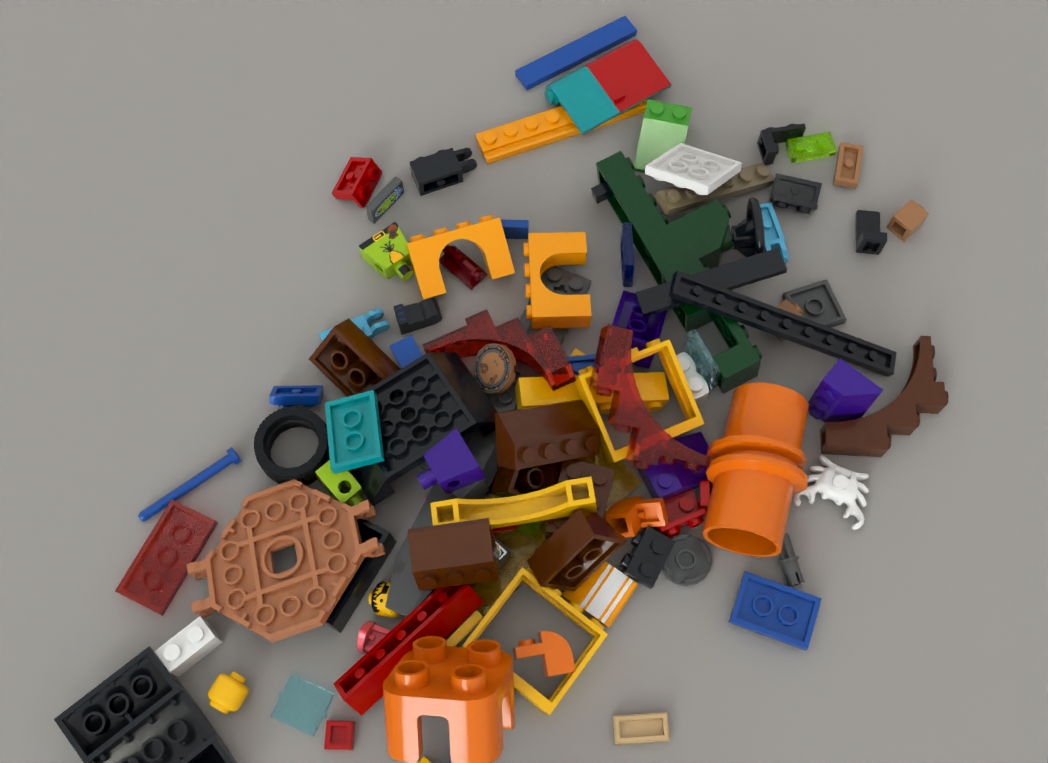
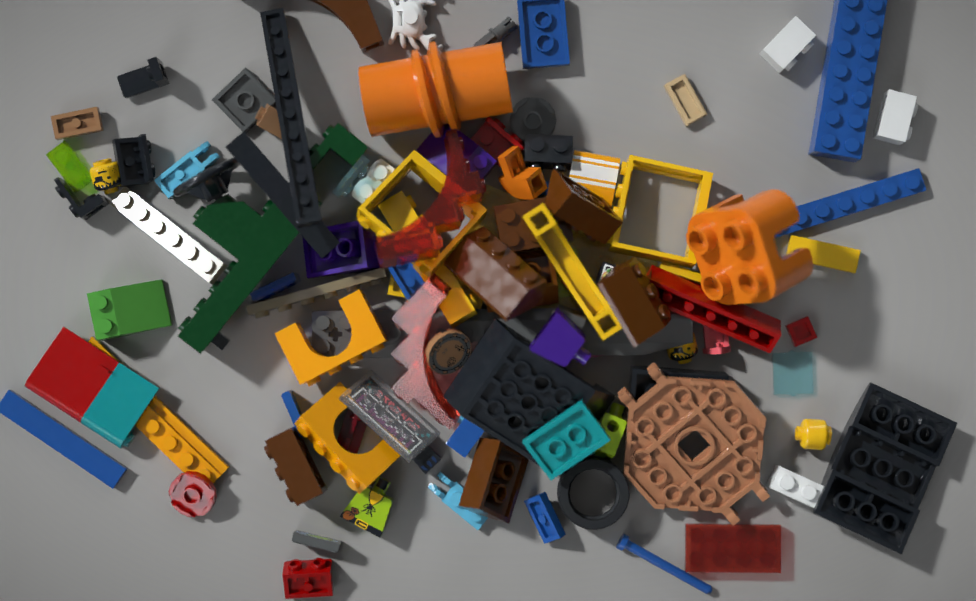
camera: 115 degrees left, 20 degrees up
(441, 169) = (259, 505): black hinge -> none
(454, 298) = (389, 416): none -> clear tile
(455, 203) = (295, 466): none -> reddish brown brick
(478, 123) = (192, 494): none -> tile
(553, 648) = (666, 191): orange brick -> none
(606, 281) = (307, 296): none -> dark tan plate
(693, 169) = (164, 260): white plate -> none
(705, 493) = (471, 125): red tile -> none
(791, 165) = (105, 176): none -> yellow head
(843, 395) = (332, 45): dark purple slope -> none
(907, 220) = (115, 47): medium nougat brick -> none

